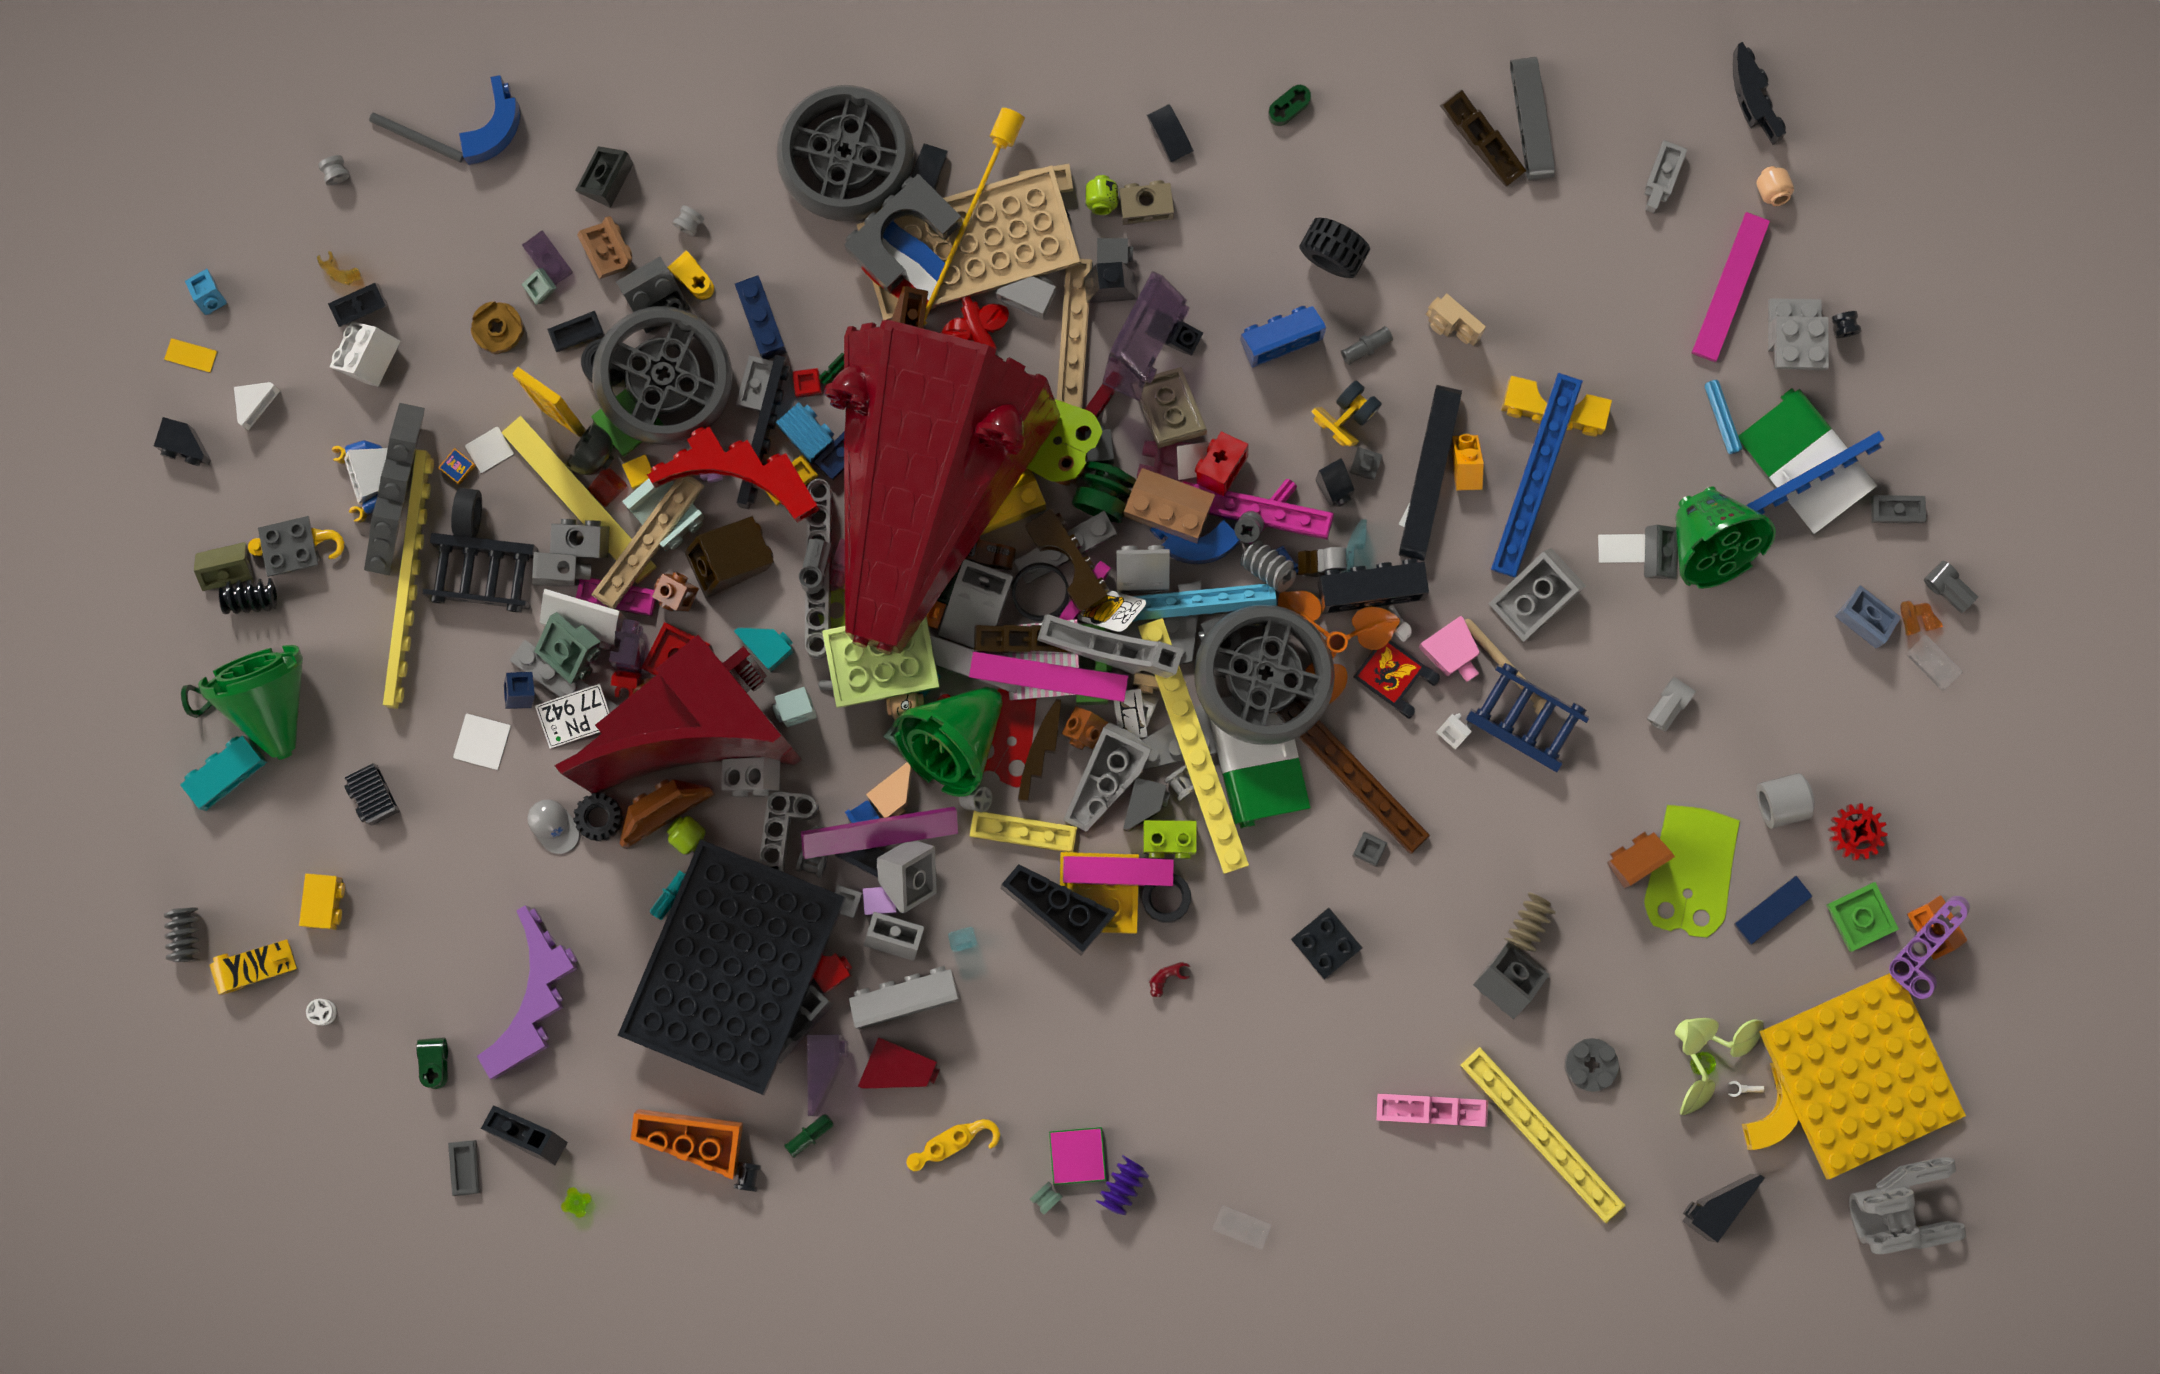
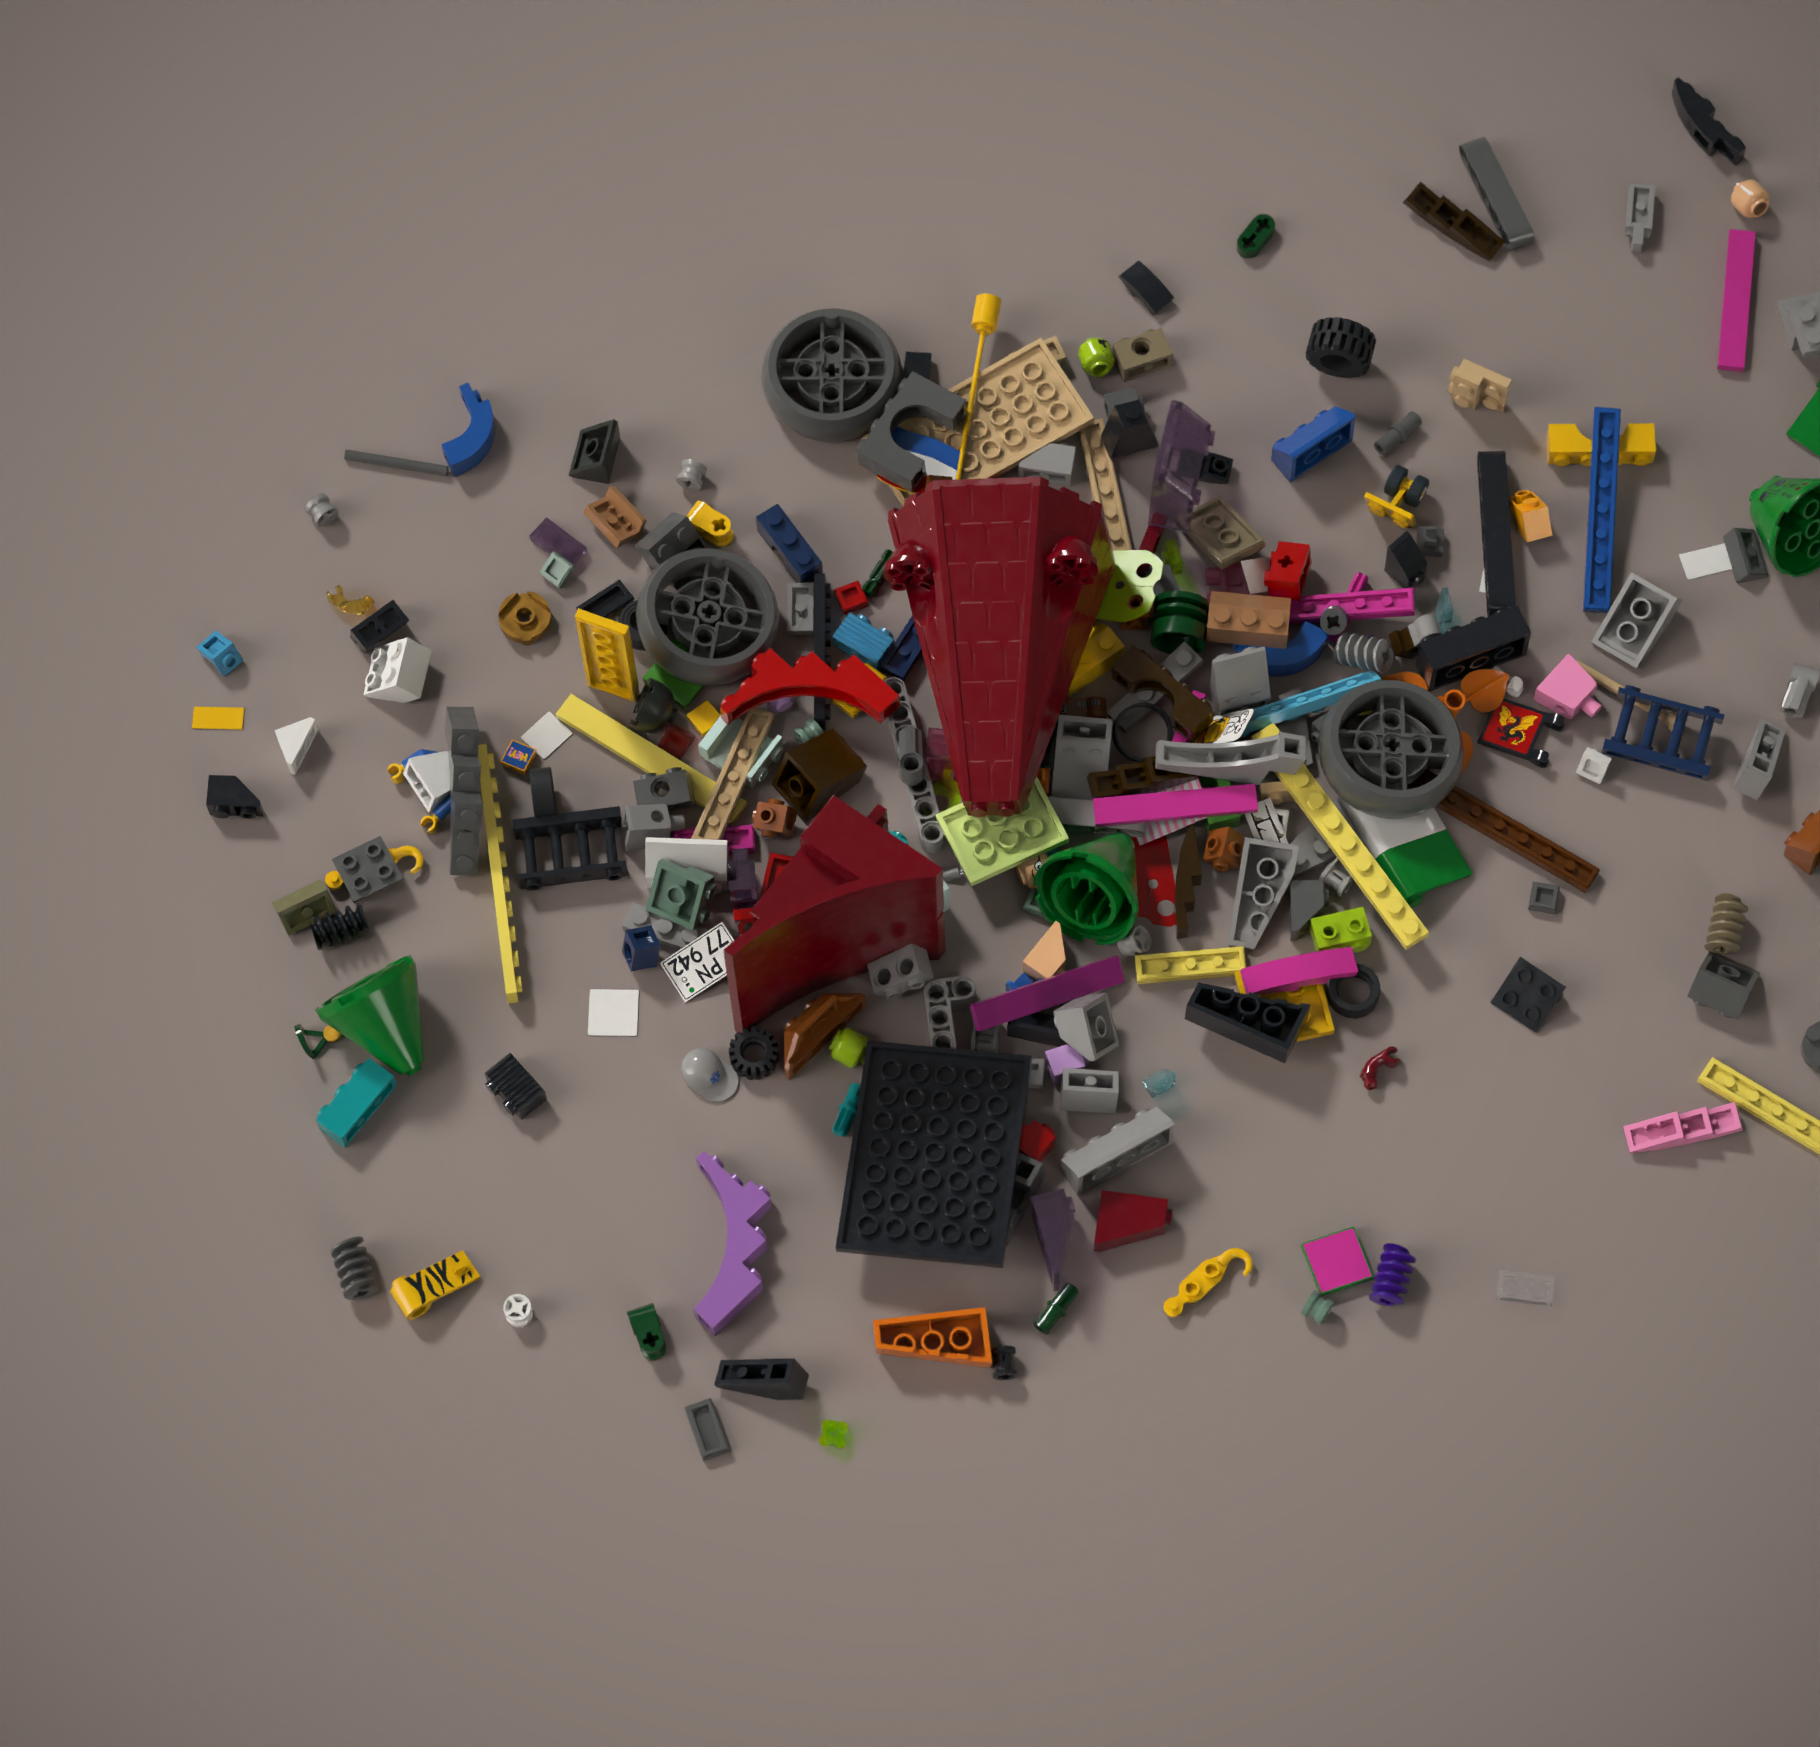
camera: 15 degrees left, 15 degrees down
(321, 901) = (490, 1202): yellow brick -> none
(730, 512) = (808, 731): none -> sand green wheel
(1116, 420) = (1172, 557): none -> clear neon green plate
(1612, 765) = (1759, 759): none -> light grey slope
(1723, 416) = (1767, 417): dark azure axle -> none

